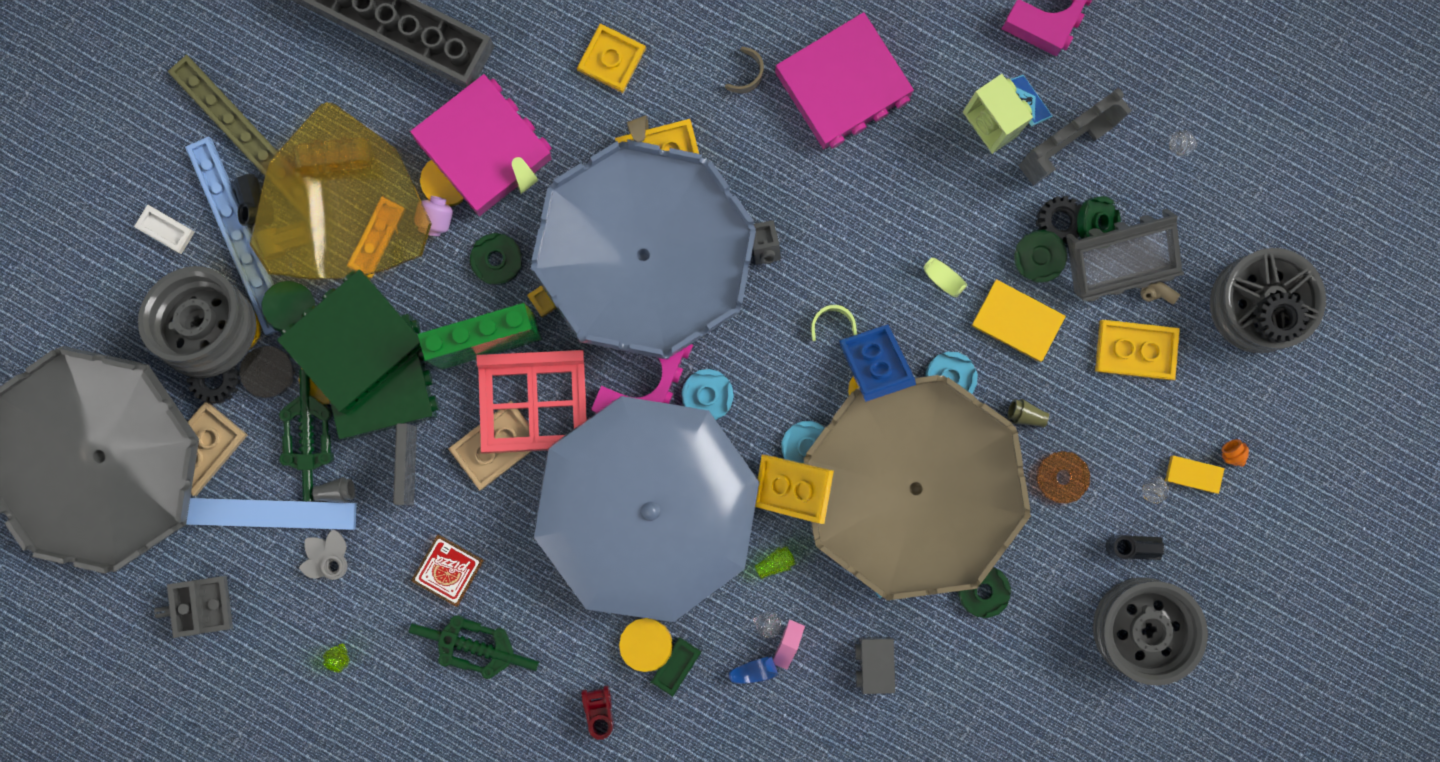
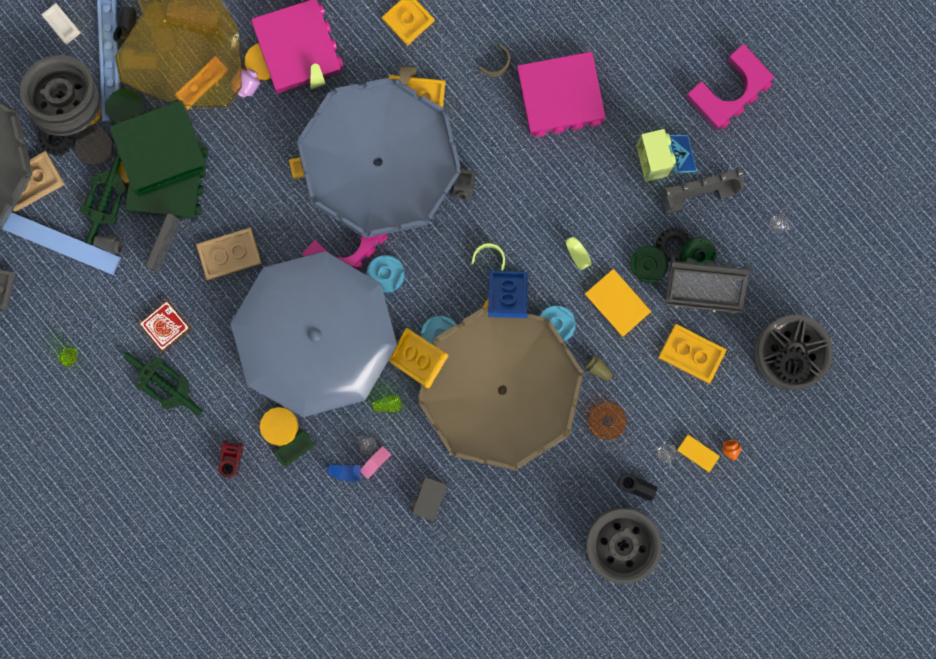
camera: 25 degrees right, 0 degrees up
(322, 554) = (84, 283): light grey plate -> none
(480, 336) = (245, 176): green brick -> none
(496, 274) = (277, 138): dark green tile -> none
(529, 364) = (273, 208): coral window -> none
(994, 603) = (528, 488): dark green tile -> none
(1159, 290) = (722, 318): dark tan arm -> none

